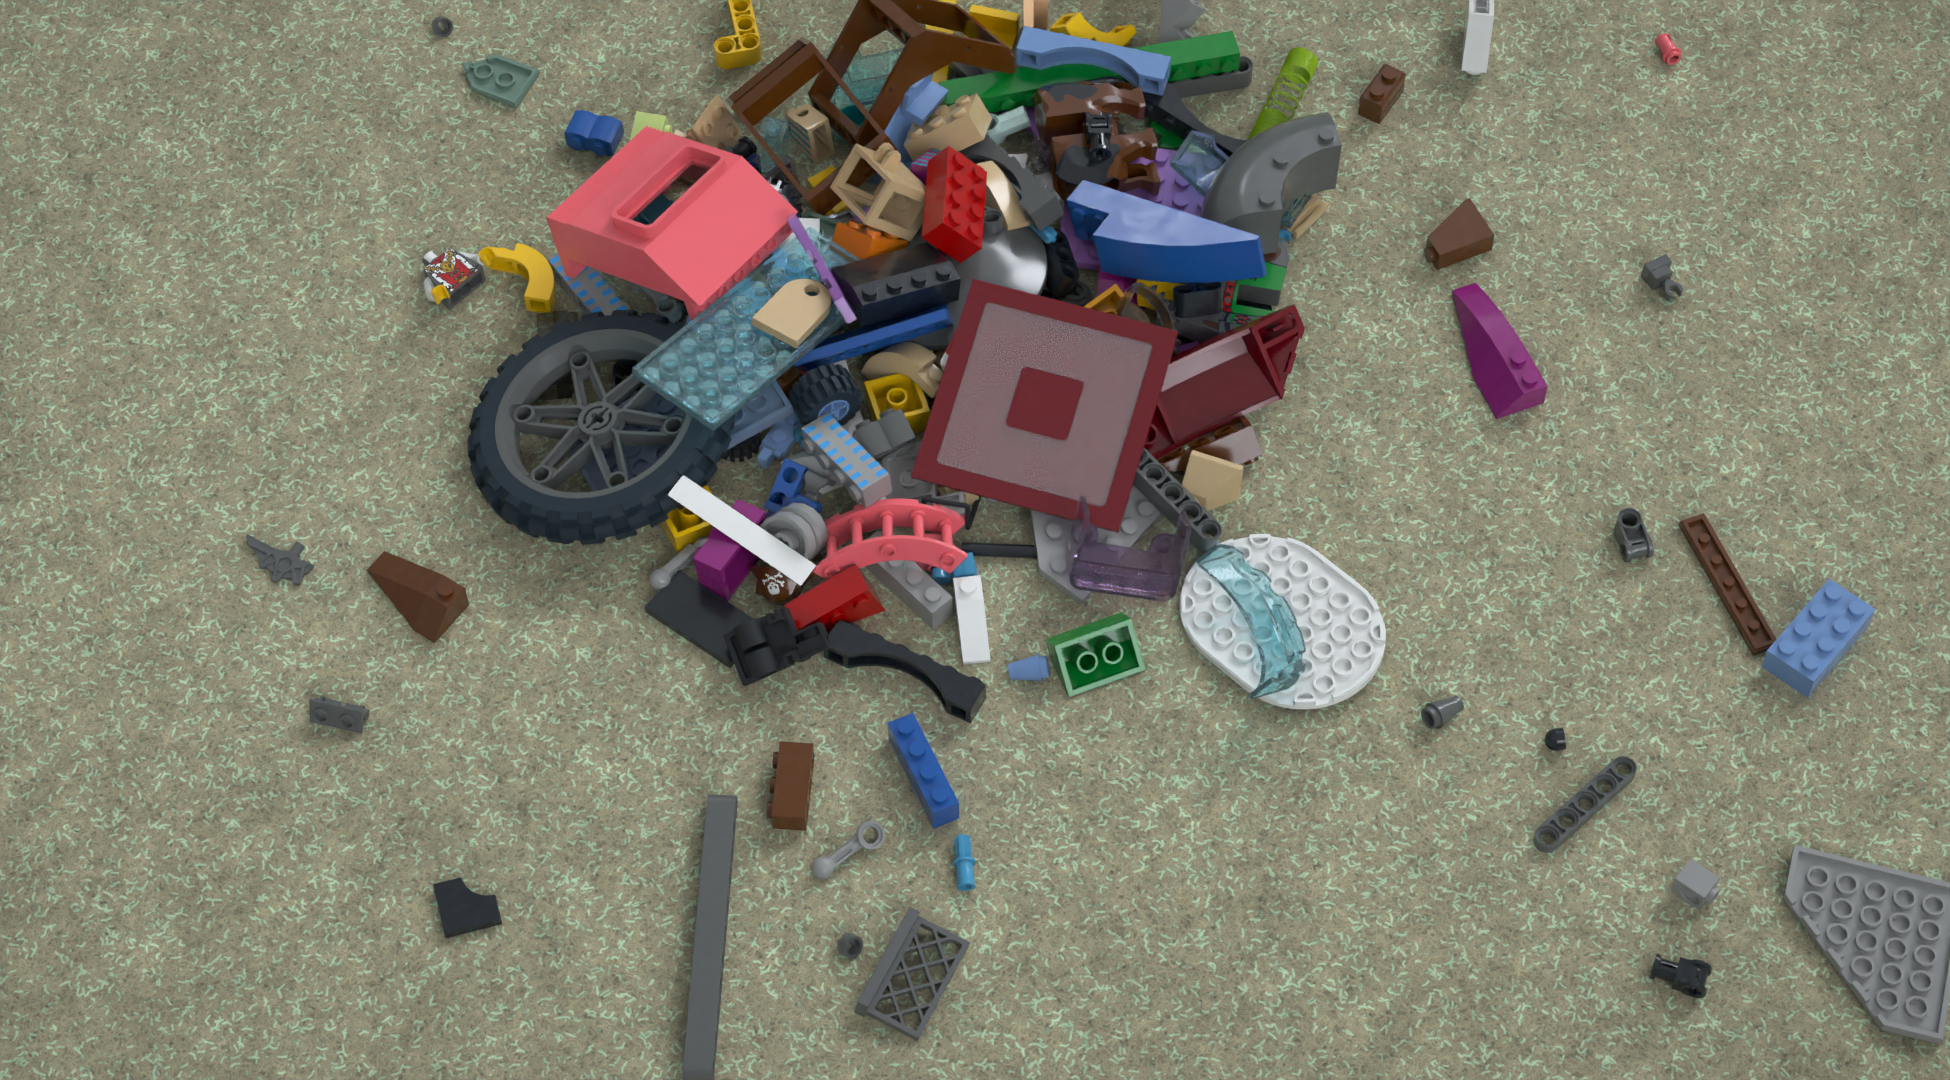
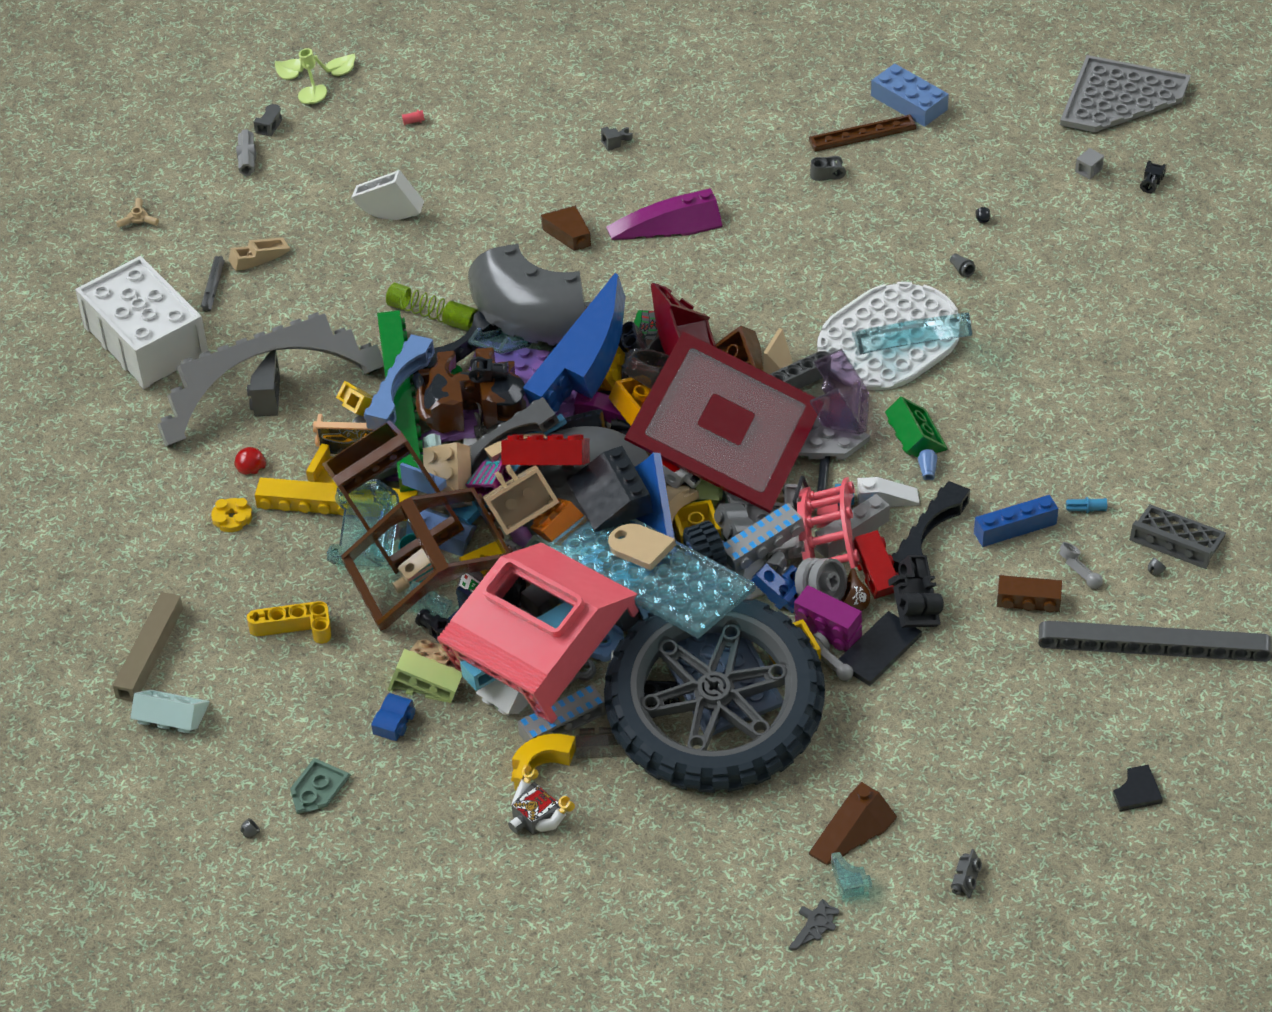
camera: 85 degrees left, 10 degrees down
(334, 586) = (850, 880): none -> clear light blue arch
(715, 126) = (405, 633): tan hinge -> none
(741, 530) = (825, 597): white sticker -> none
(822, 268) = (568, 533): medium lavender tile -> none
(1381, 93) = (432, 256): reddish brown brick -> none
(1588, 792) = (1027, 201): dark grey beam -> none

